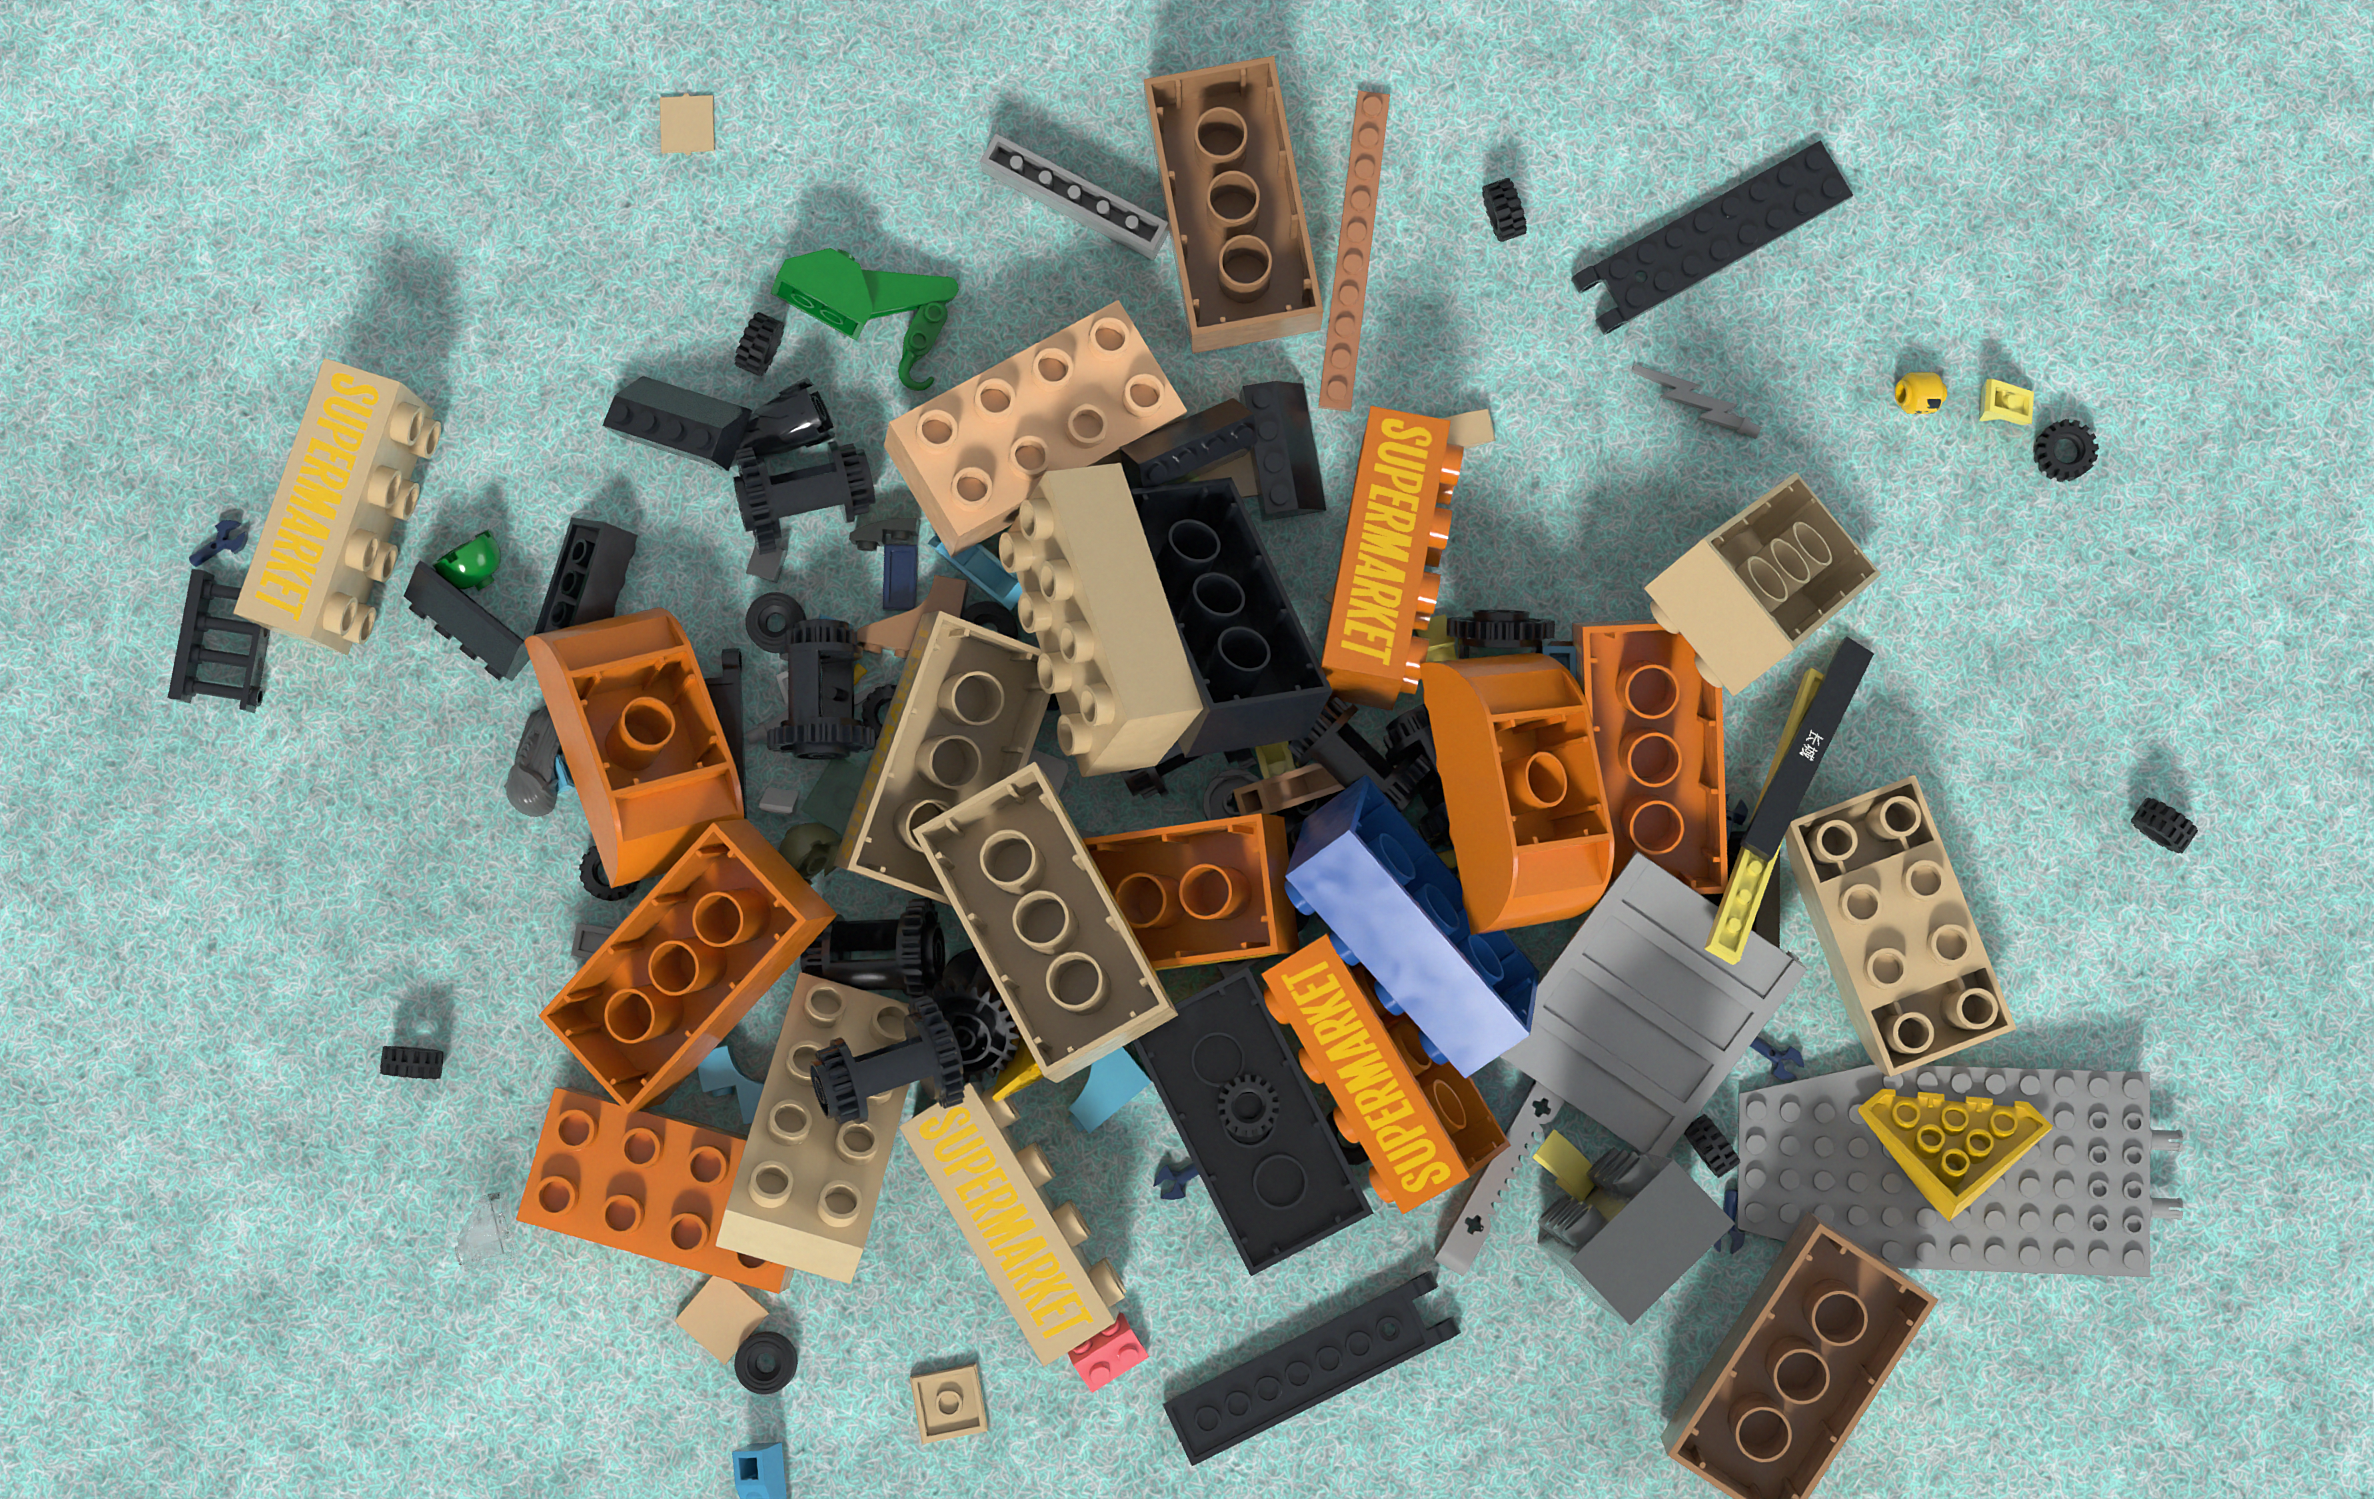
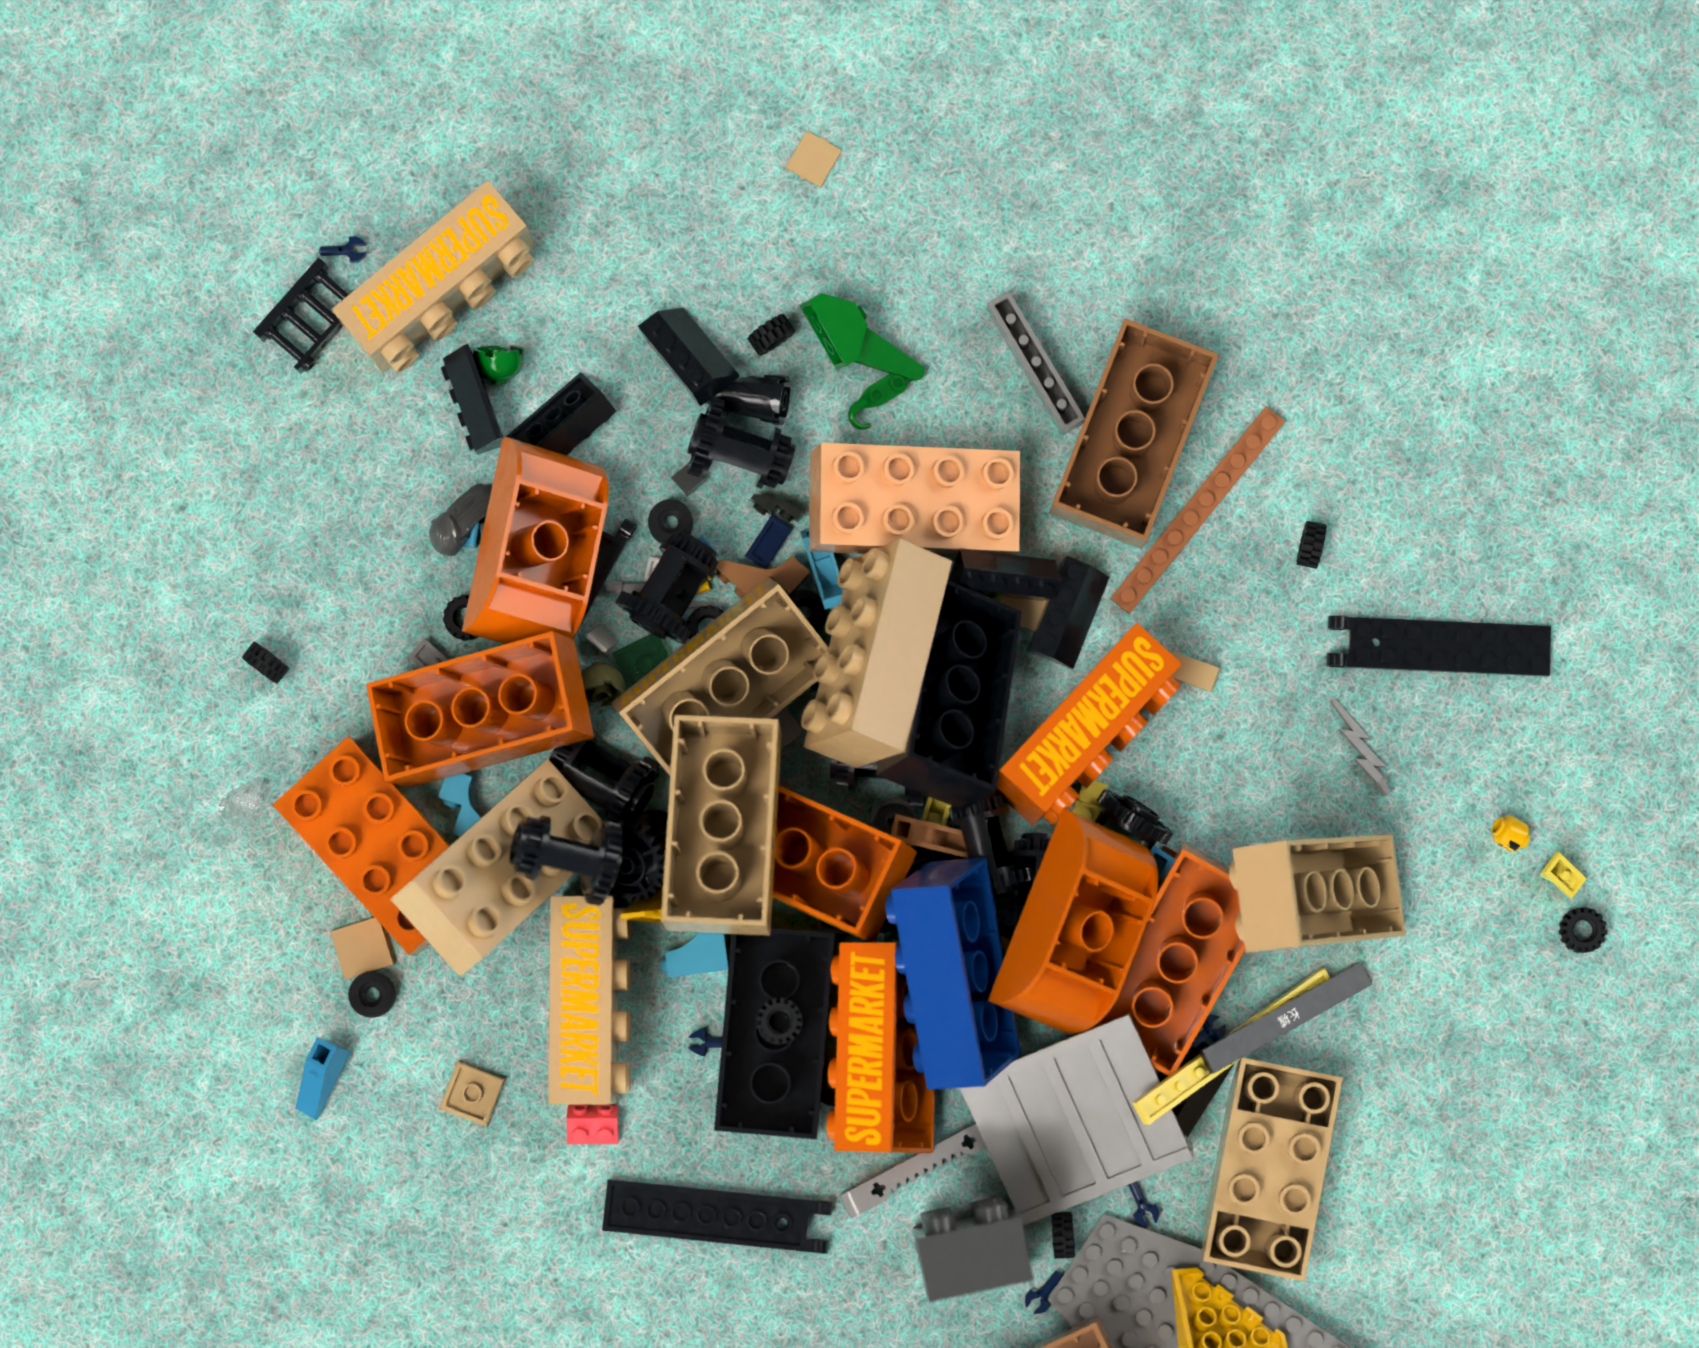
camera: 30 degrees right, 0 degrees up
(1566, 1164) = (962, 1189): light yellow slope -> none
(2164, 825) = (1489, 1213): black tyre -> none

